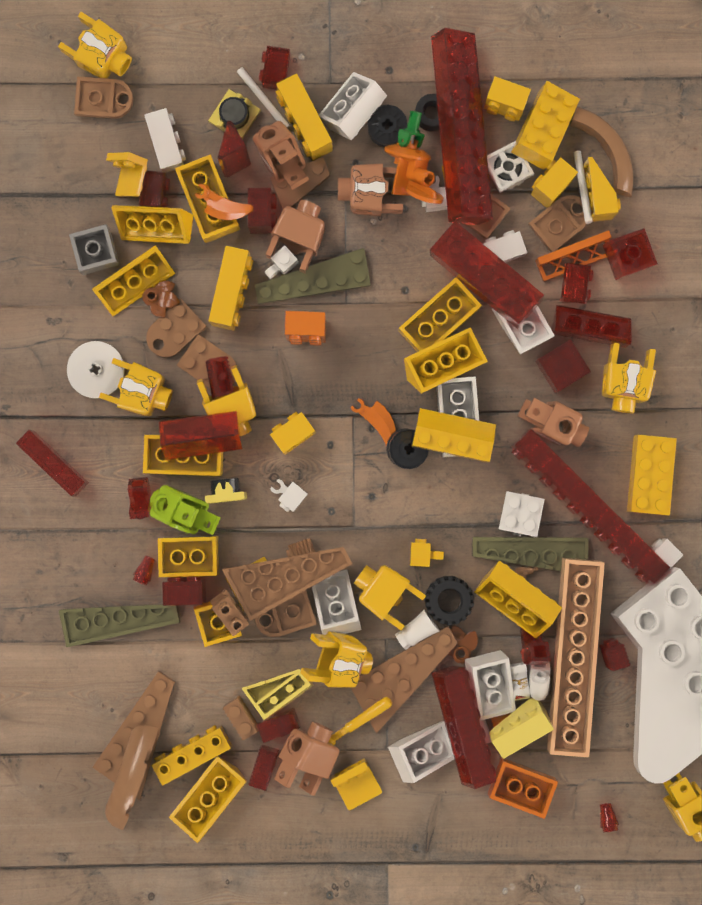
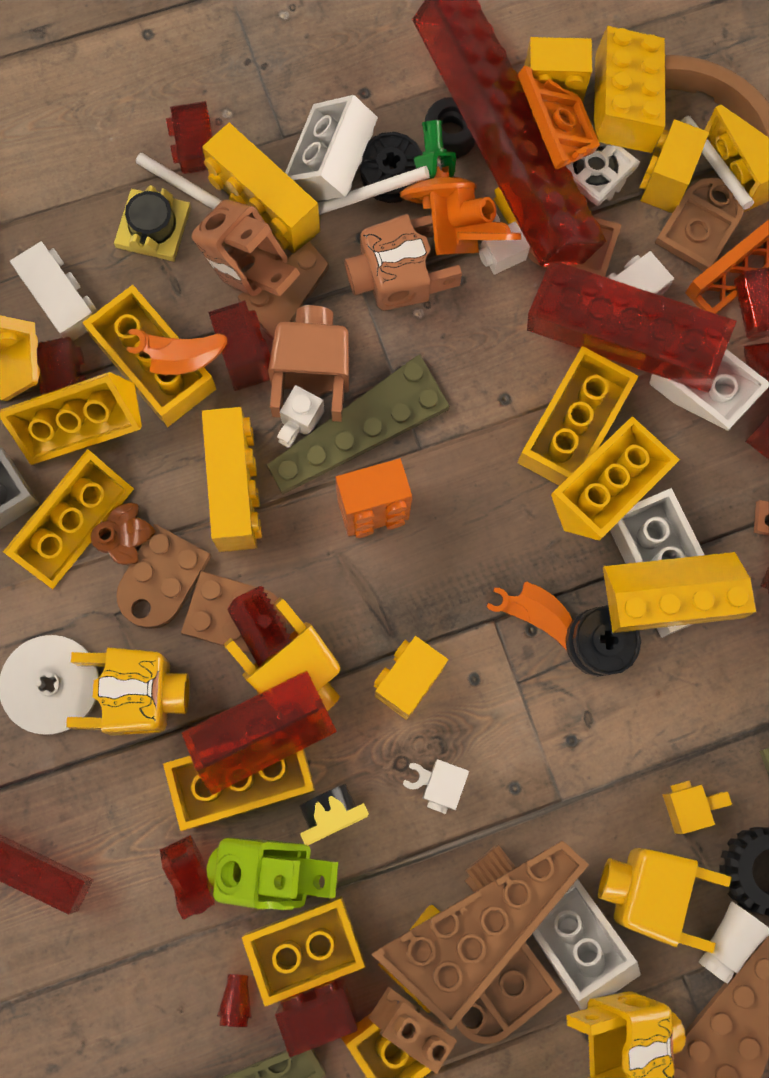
camera: 25 degrees left, 10 degrees down
(233, 152) = (168, 263): clear red slope -> none
(371, 140) = (375, 189): none -> white bar
(493, 134) = (560, 119): none -> orange wing

